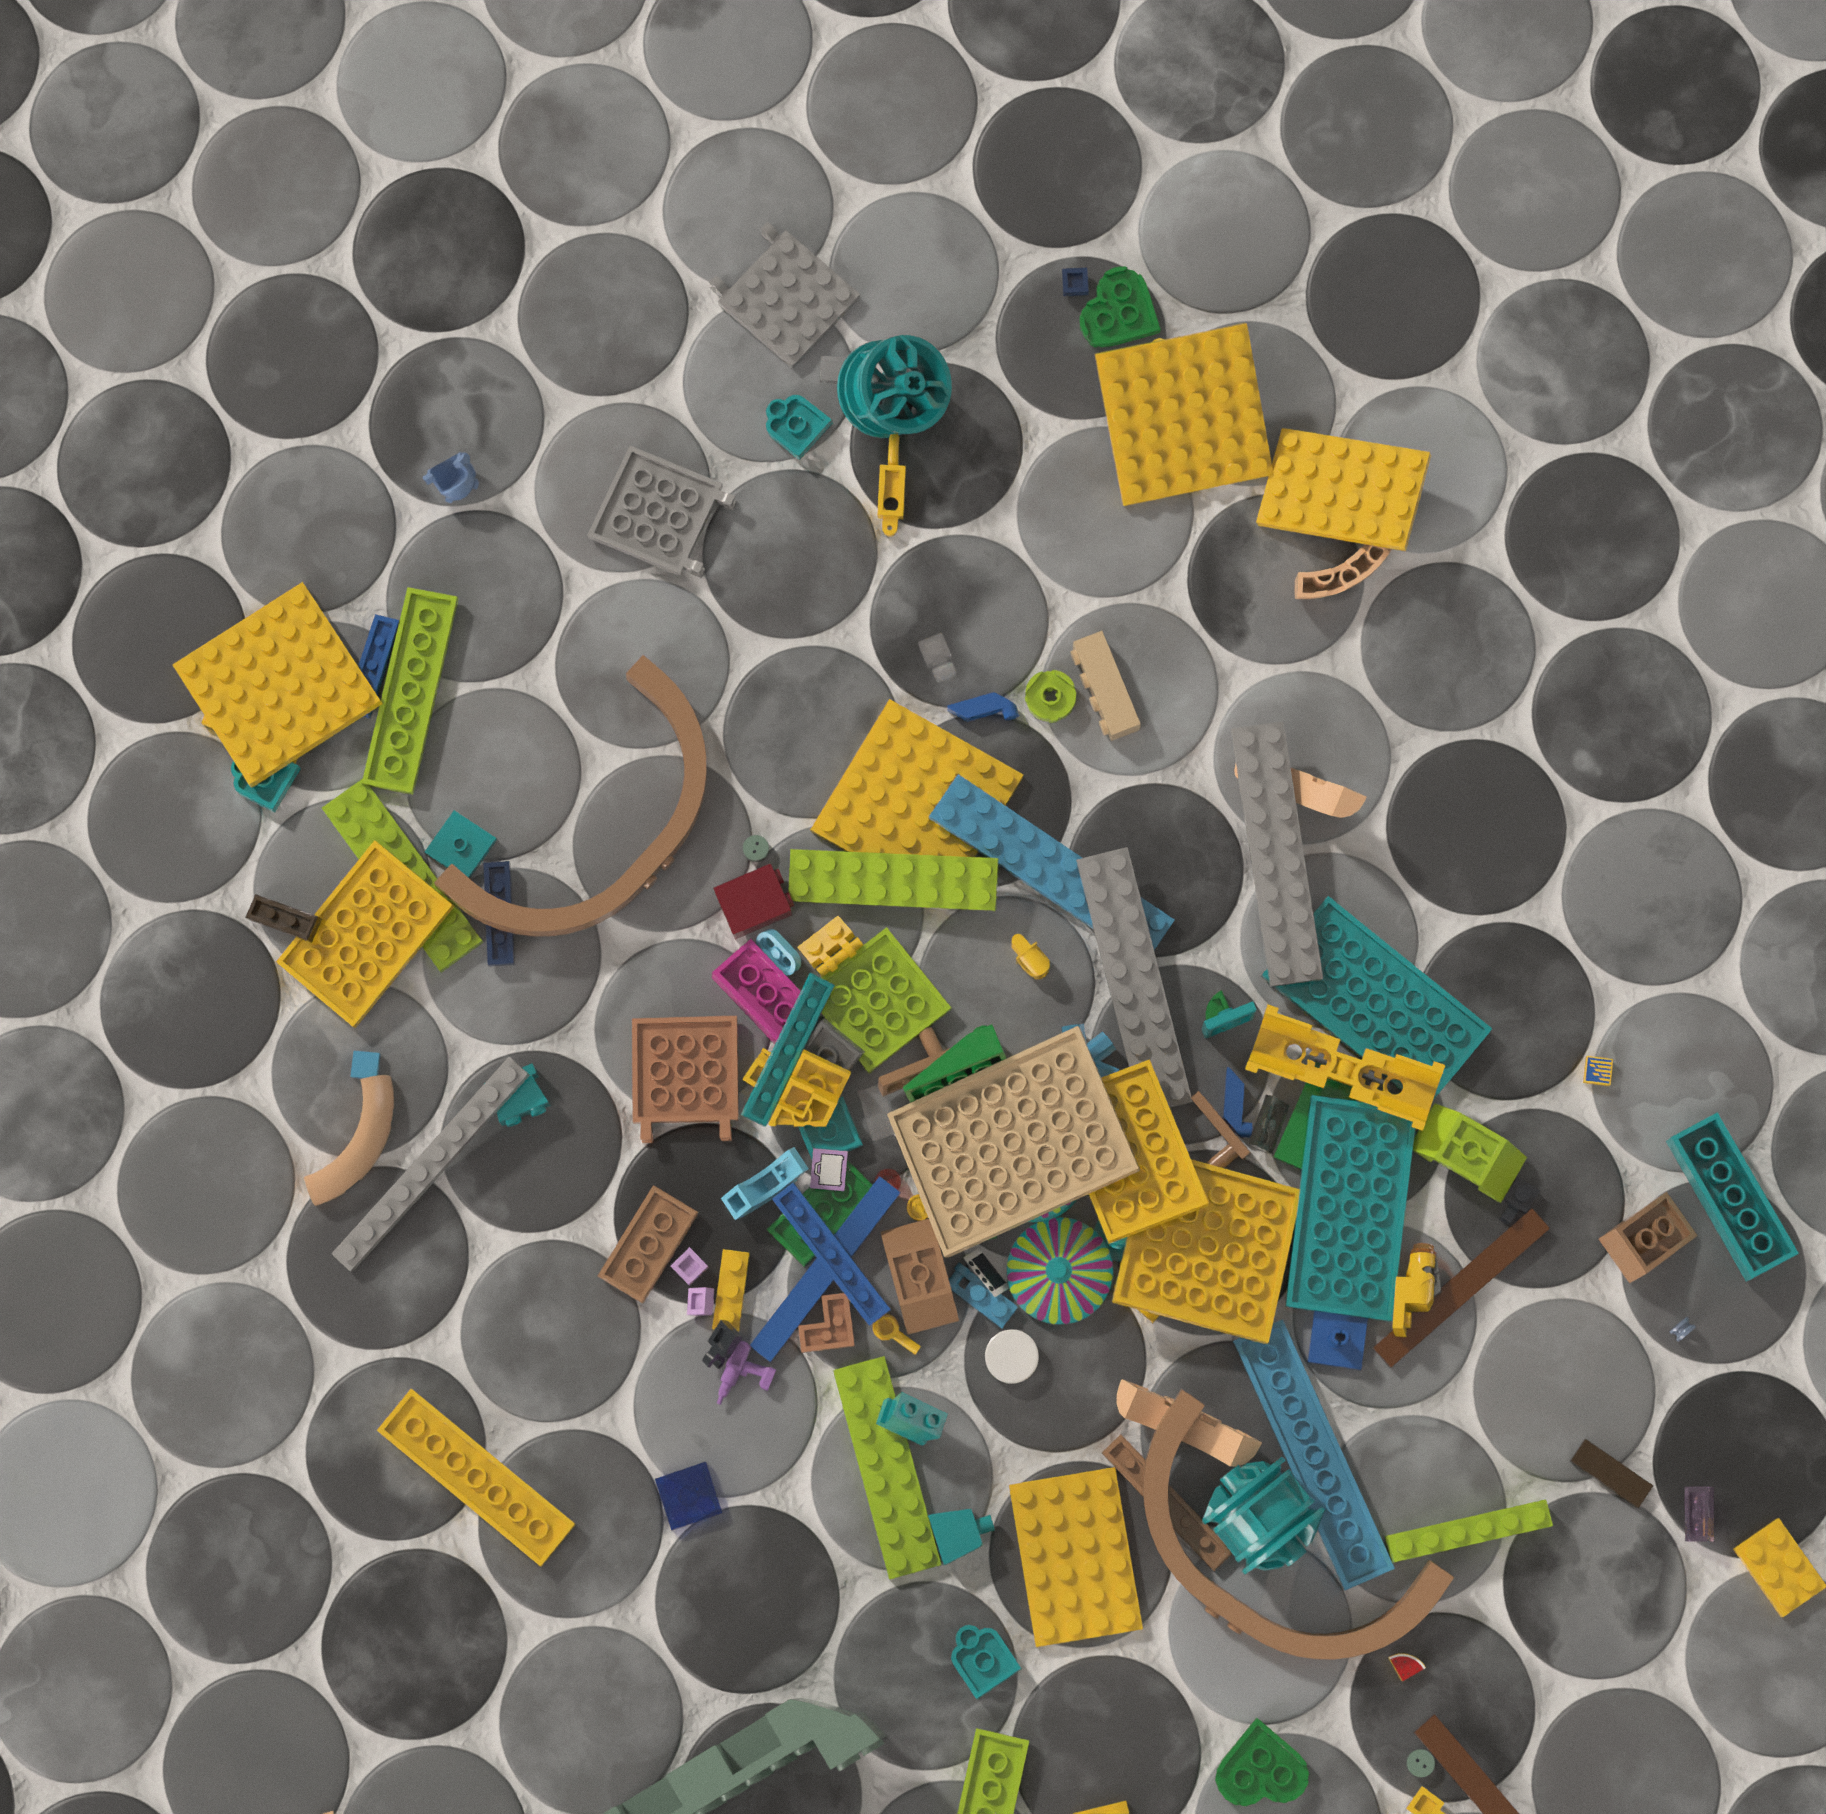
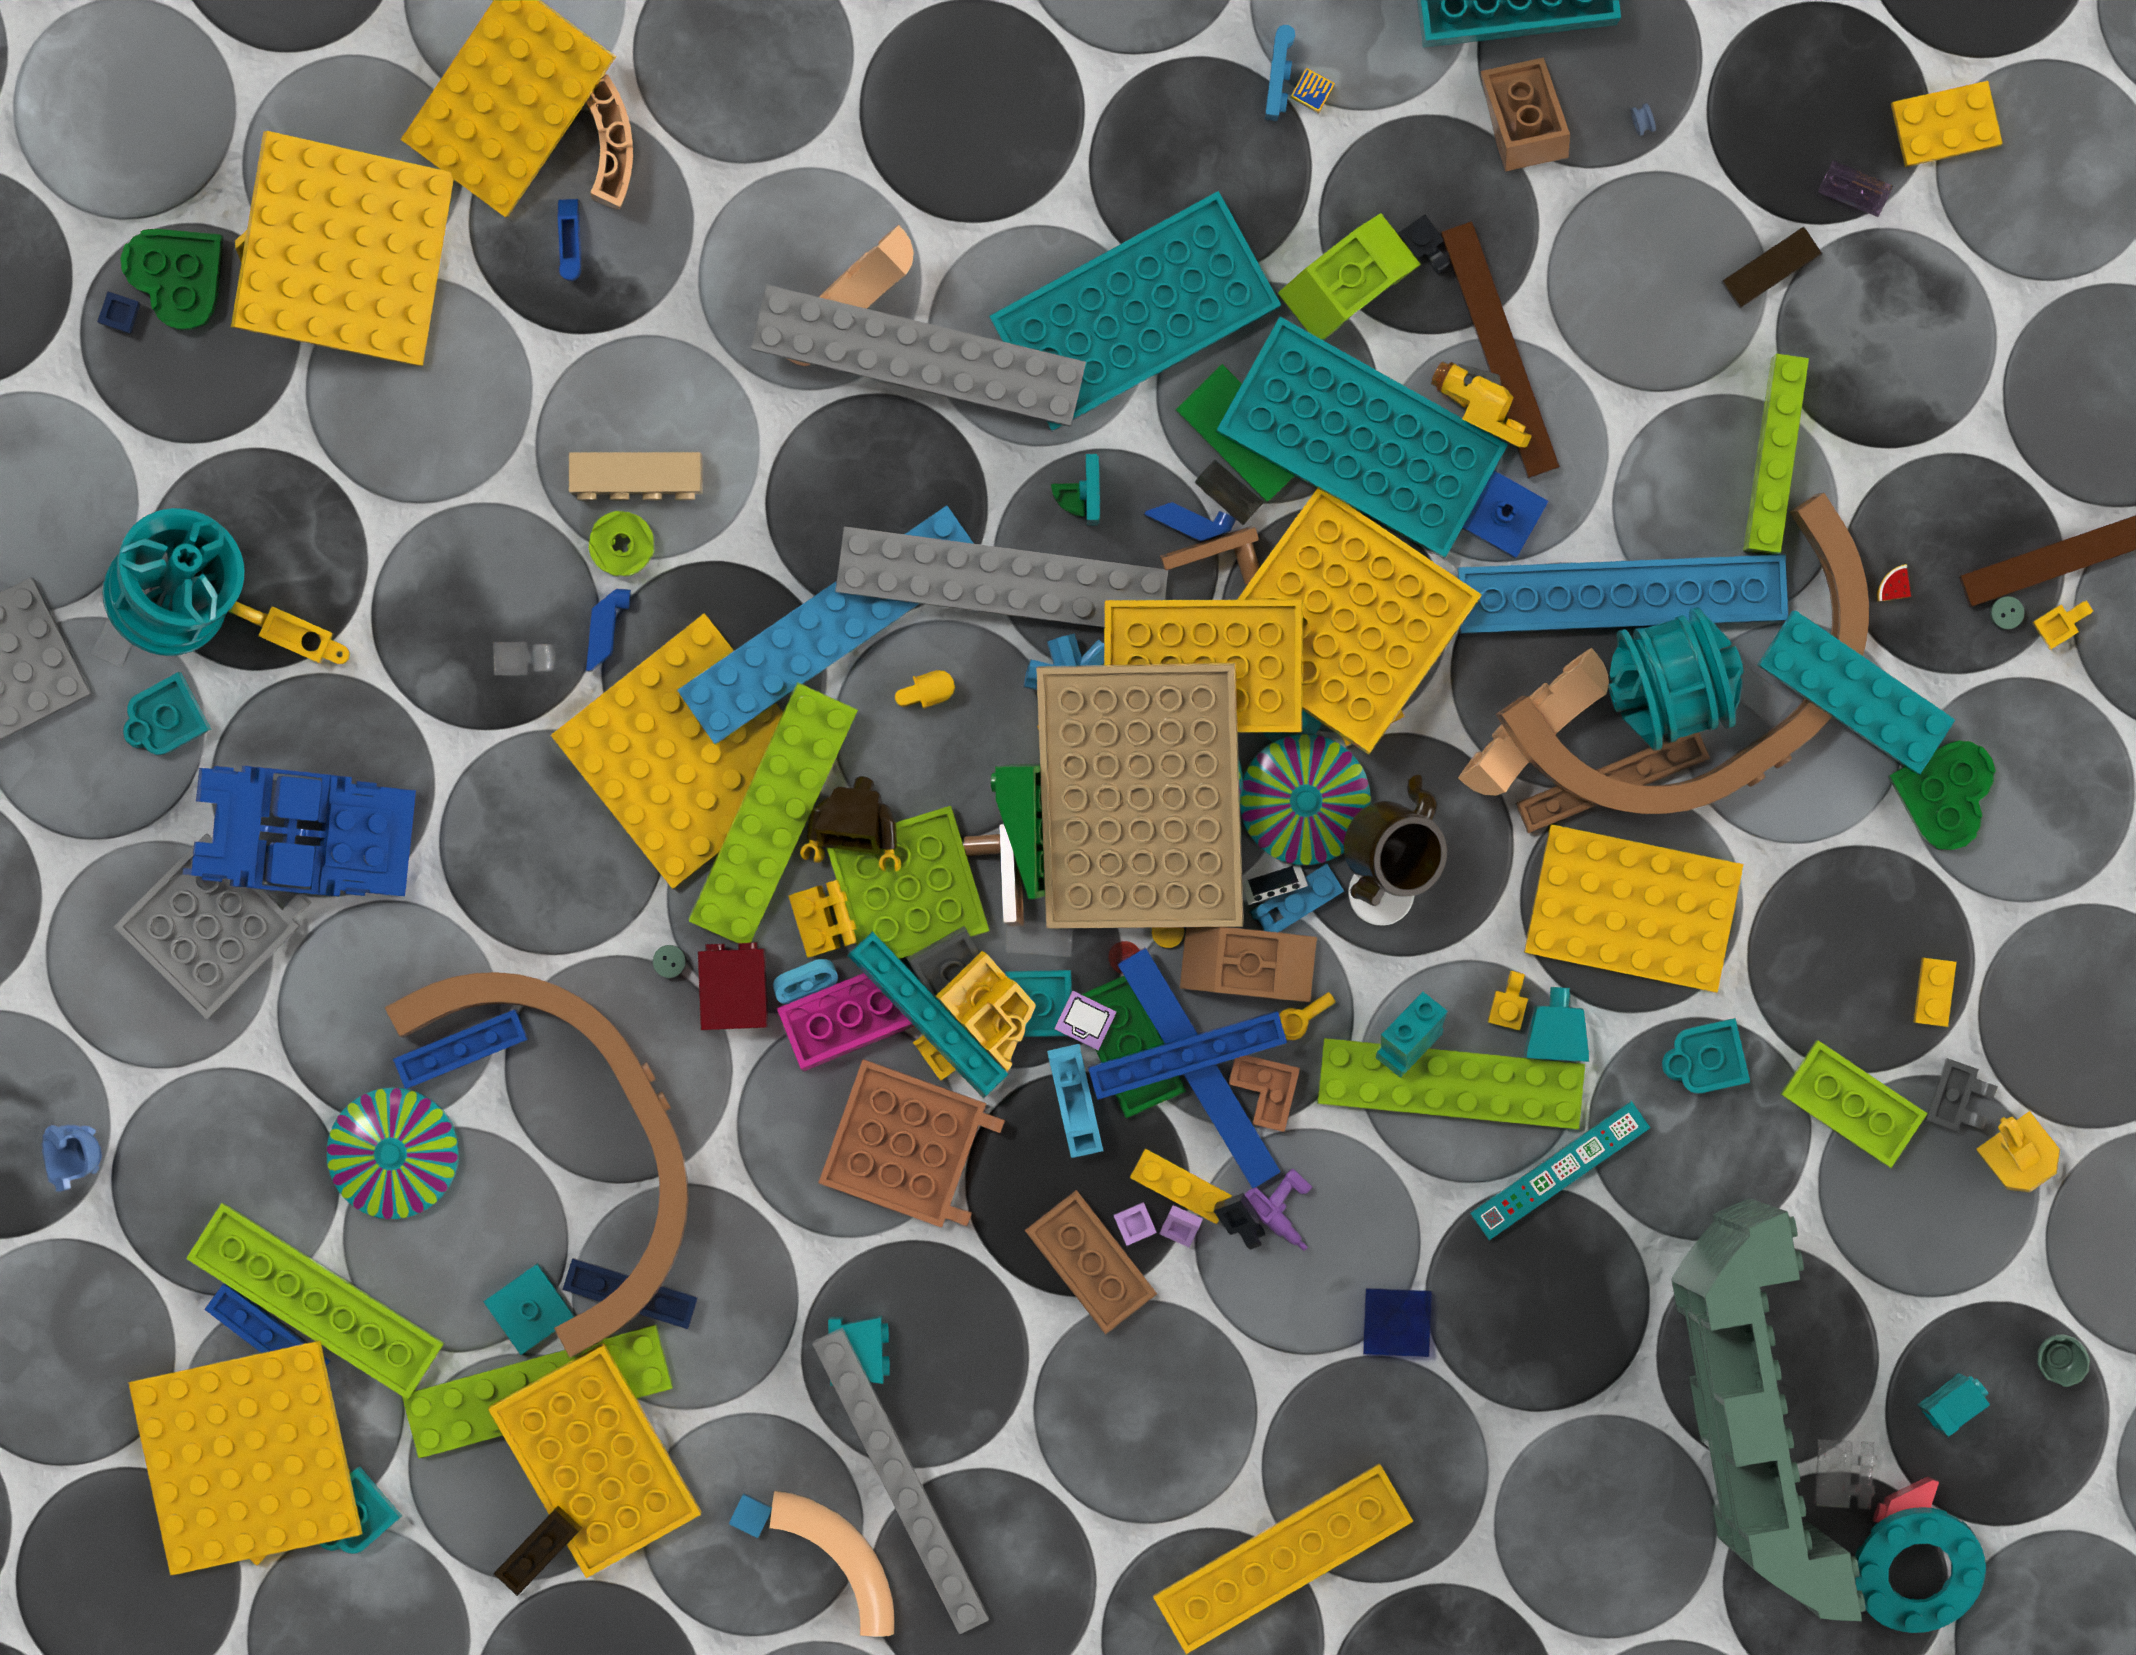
camera: 80 degrees left, 10 degrees up
(539, 705) = (392, 1153): none -> dish
(633, 723) = (460, 1049): none -> blue plate
(758, 592) = (359, 834): none -> blue piece
(852, 1577) = (1560, 1170): none -> teal tile
(910, 940) = (853, 822): none -> dark brown torso
(962, 1488) = (1508, 1006): none -> yellow plate
(1048, 1363) = (1395, 847): none -> dark brown piece
(1258, 573) = (569, 239): none -> blue piece
(1310, 1664) = (1856, 692): none -> teal plate
(1417, 1078) = (1271, 323): yellow piece -> none
(1602, 1039) = (1279, 71): none -> dark azure plate

